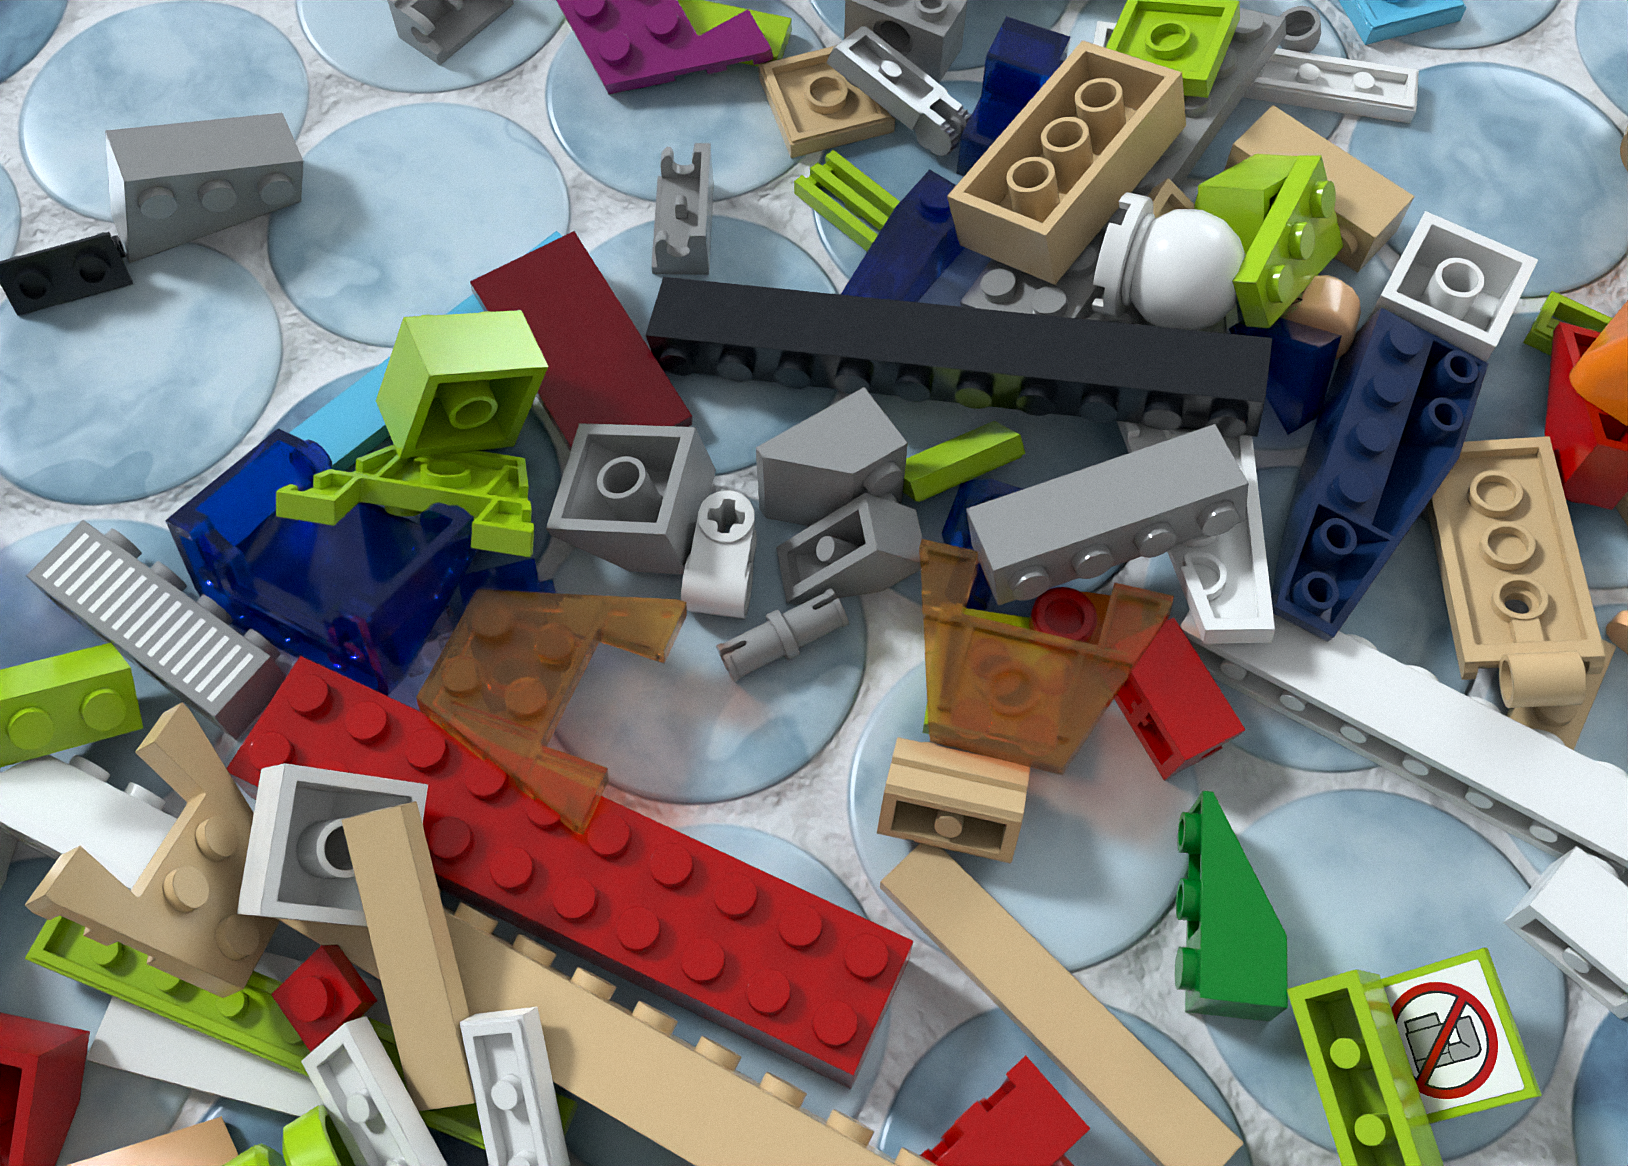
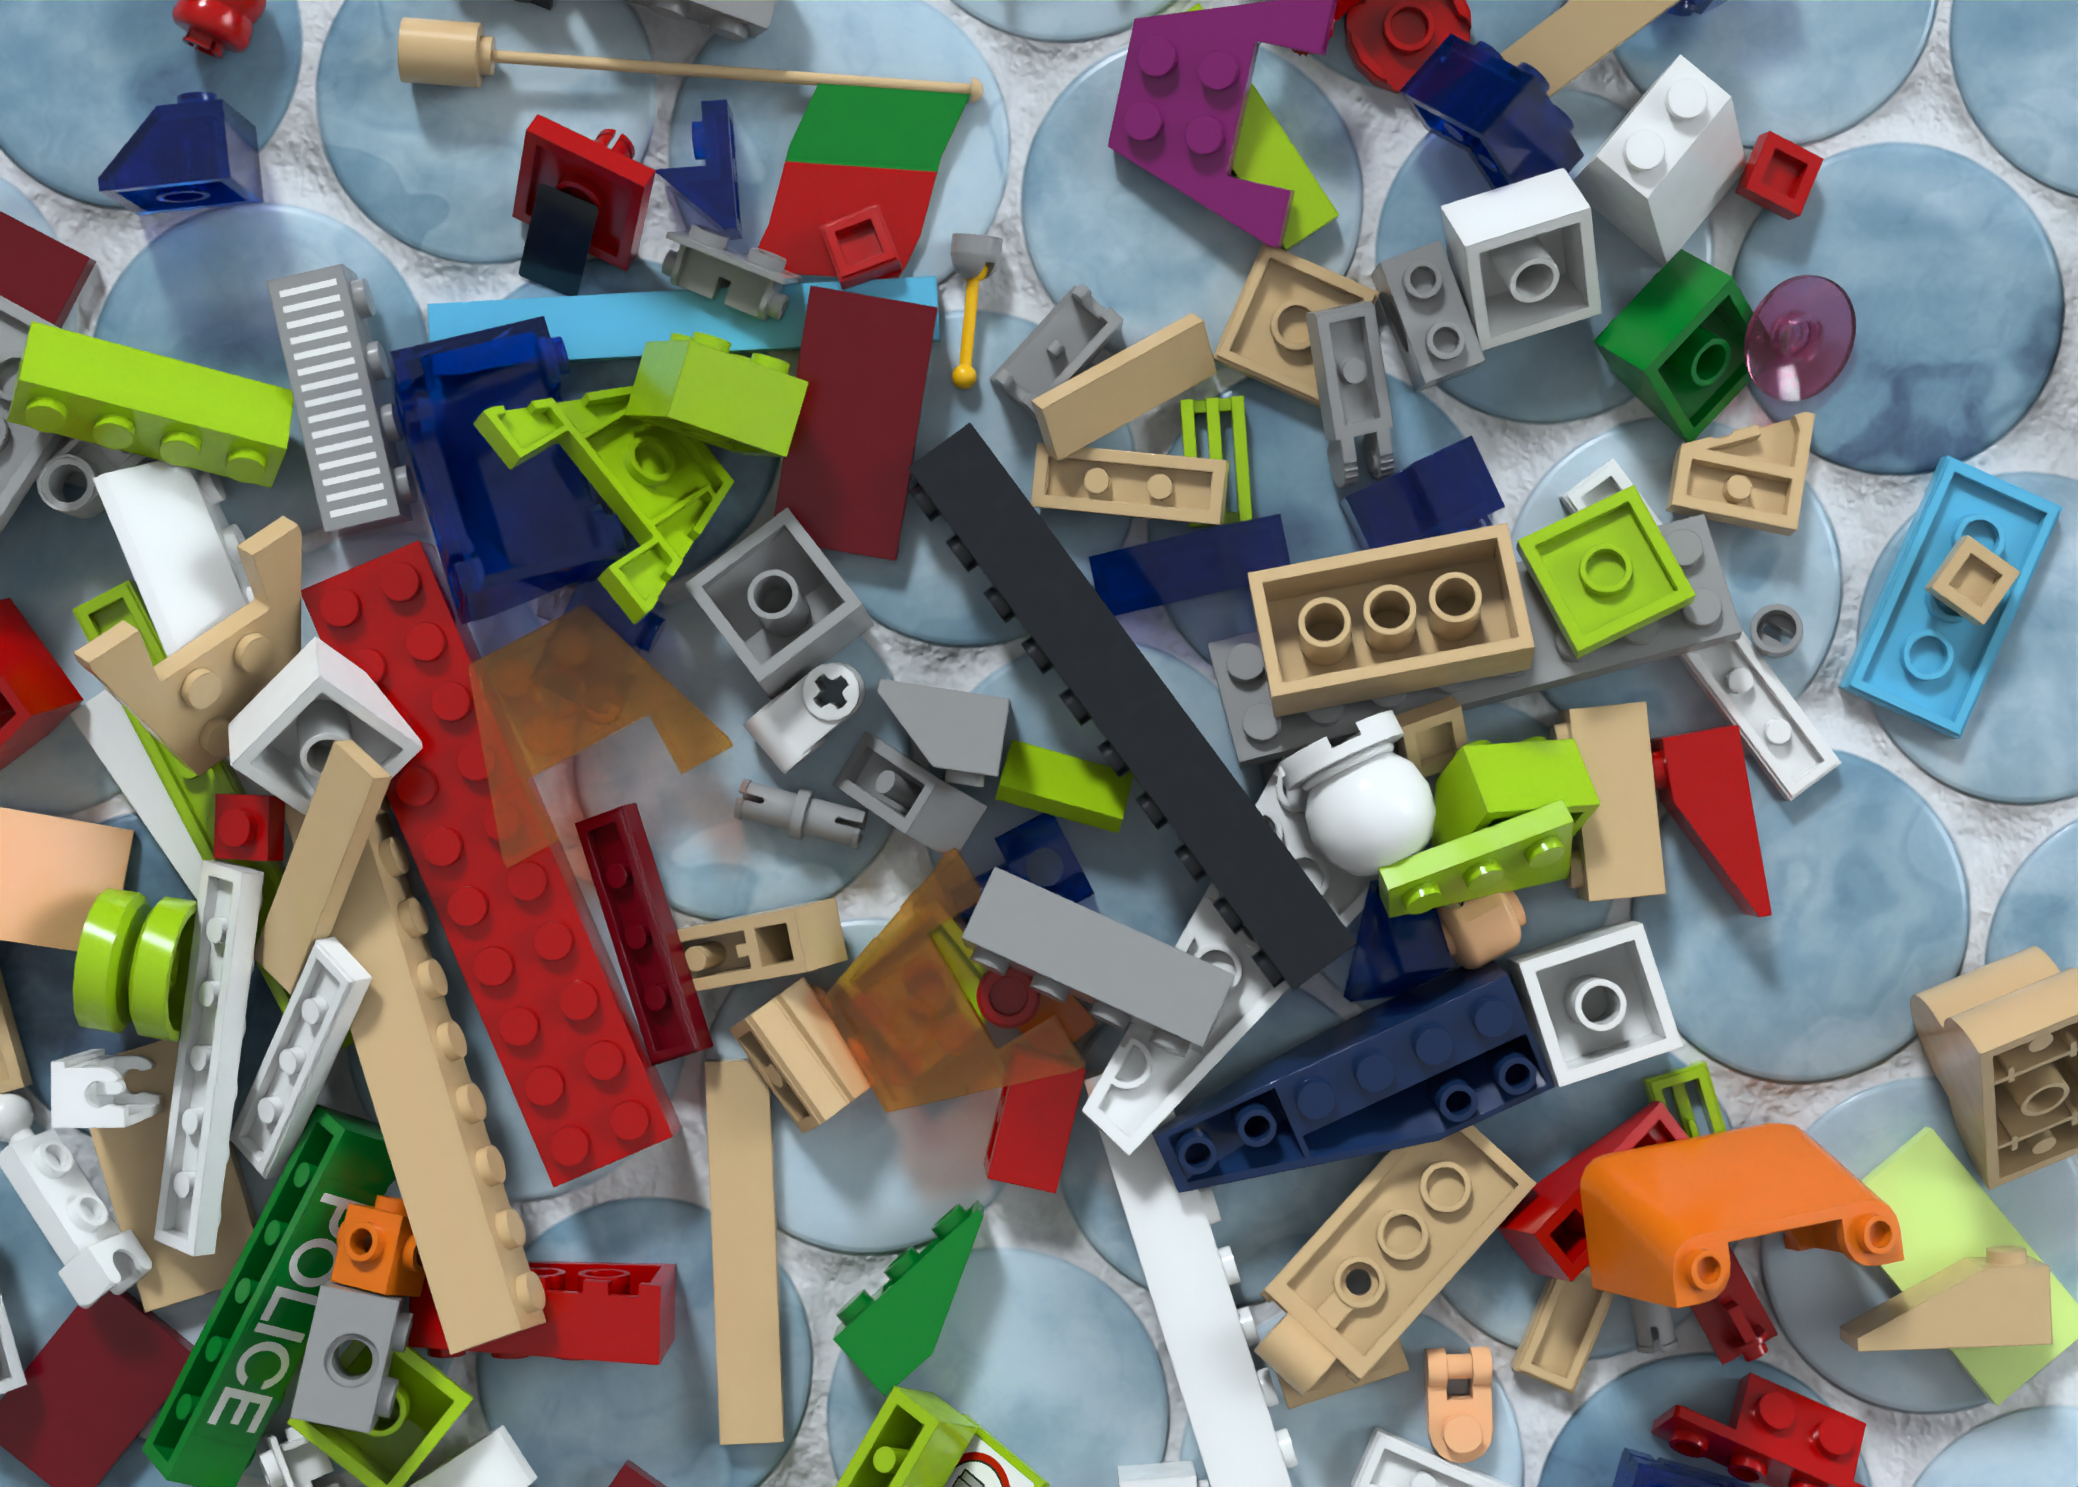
camera: 45 degrees right, 25 degrees up
(244, 344) = (593, 174): none -> red tile
(250, 391) = (558, 240): none -> black sticker
(336, 284) = (714, 187): none -> clear blue slope
(375, 323) = (753, 277): none -> light grey hinge
(436, 212) = (853, 149): none -> flag
(485, 246) = (860, 247): none -> red tile
(574, 202) = (974, 259): none -> hinge
(740, 819) = (644, 934): none -> dark red tile
(748, 189) = (1124, 386): none -> tan tile
(815, 237) = (1132, 485): none -> tan plate
(827, 767) = (764, 944): none -> tan slope
(1396, 142) = (1709, 797): none -> red slope

